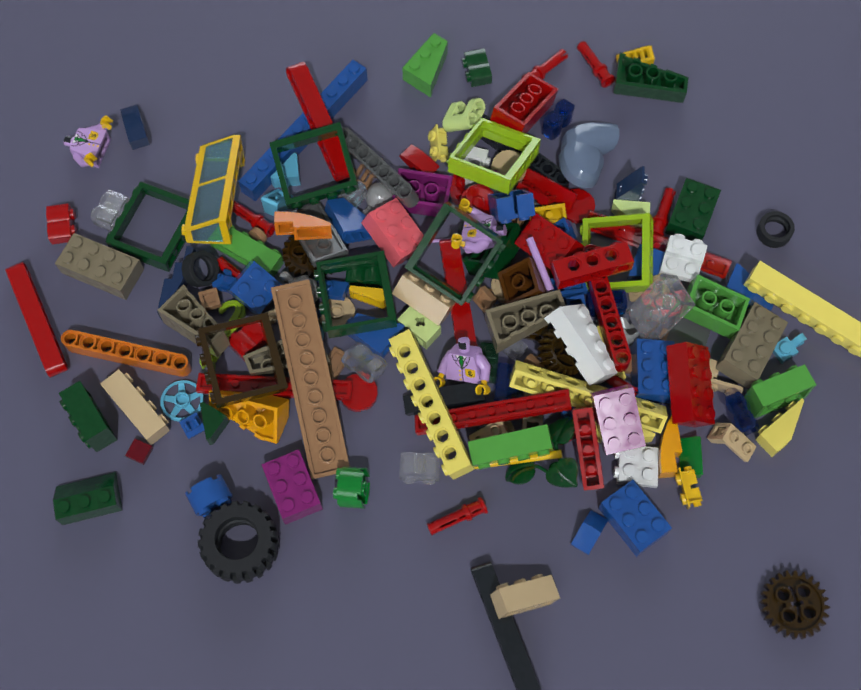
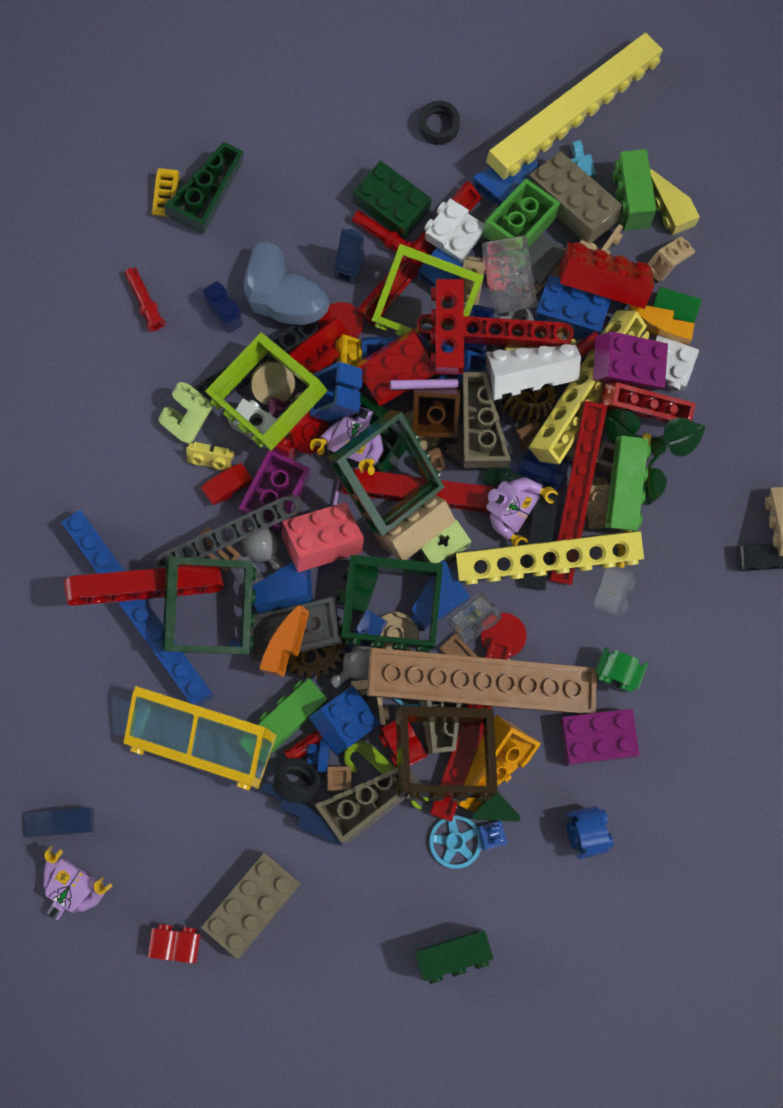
camera: 75 degrees left, 10 degrees up
(36, 319) = (298, 999): red beam -> none
(87, 499) = (547, 977): dark green slope -> none
(109, 209) = (175, 877): clear brick -> none
(119, 347) = (368, 903): orange beam -> none
(135, 407) = (453, 897): tan brick -> none
(139, 451) = (506, 905): dark red tile -> none
(177, 241) = (196, 865): dark green window -> none
(223, 521) = (682, 806): black tyre -> none
(254, 219) = (247, 698): red pin -> none
(257, 234) = (268, 701): medium nougat tile -> none
(274, 202) = (228, 668): medium azure slope -> none
(291, 172) = (193, 637): medium azure slope -> none
(368, 295) = (389, 588): yellow slope -> none
(426, 64) = (95, 436): bright green wedge -> none
(466, 512) = (677, 557): red pin -> none
(477, 67) = (117, 377): dark green brick -> none
(524, 103) = (197, 337): red brick -> none
(589, 532) = (730, 434): blue slope -> none
(599, 69) = (167, 238): red pin -> none
(626, 207) = (374, 265): yellowish green slope -> none
(634, 518) = (730, 384): blue brick -> none
(689, 495) = (720, 319): yellow hinge -> none
(743, 418) = (652, 235): clear blue brick -> none

